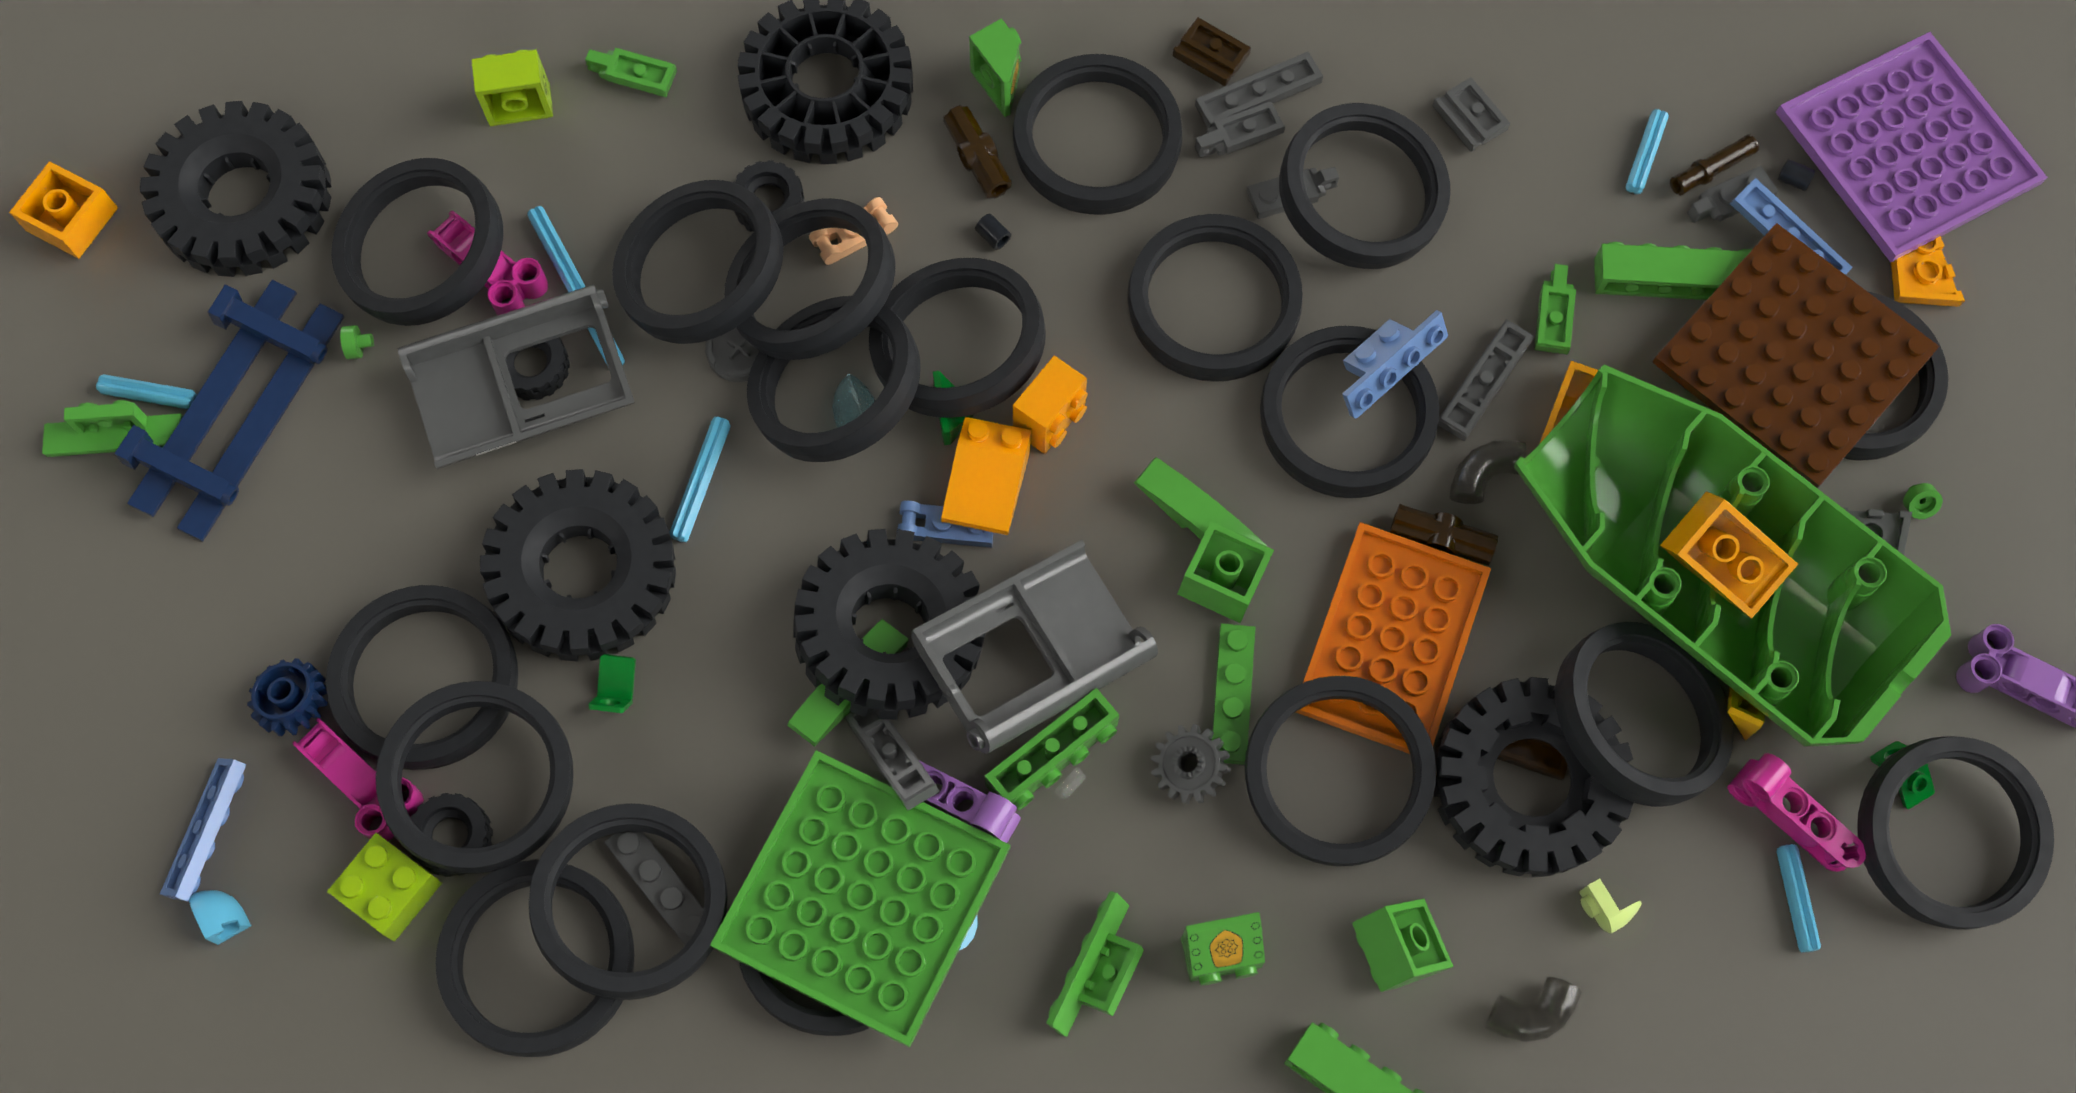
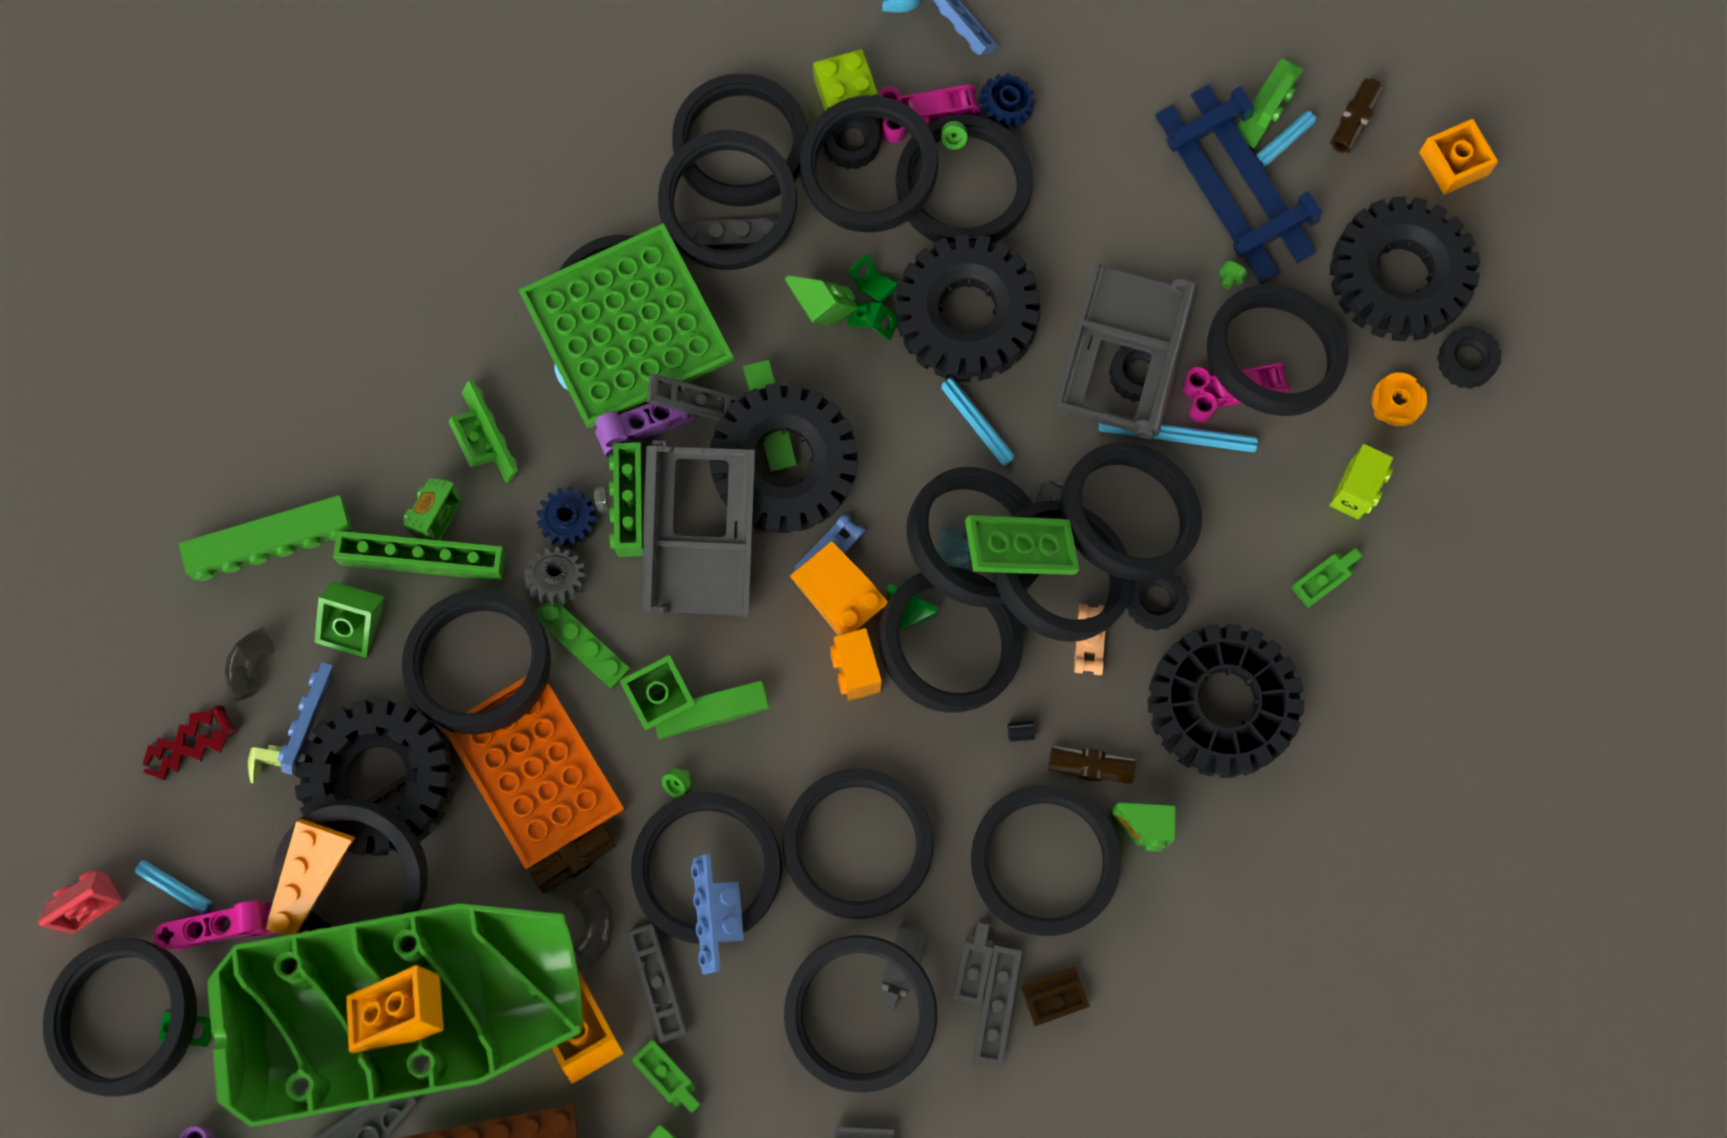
camera: 125 degrees right, 5 degrees up
(71, 337) = (1356, 115): none -> dark brown piece
(294, 59) = (1469, 337): none -> black tyre
(376, 709) = (954, 135): none -> bright green tile
(398, 131) = (1391, 413): none -> light orange plate
(659, 662) = (870, 316): none -> green bracket
(675, 714) = (822, 300): none -> bright green slope
(821, 306) = (1021, 545): none -> bright green plate
(1112, 823) = (565, 503): none -> dark blue gear
(1282, 919) = (420, 556): none -> bright green brick
(1293, 494) = (676, 782): none -> bright green tile
(1524, 900) = (309, 708): none -> medium blue plate
(1671, 1013) = (179, 748): none -> dark red piece
(1683, 747) = (306, 872): none -> light orange wing
(1902, 964) = (81, 903): none -> coral slope

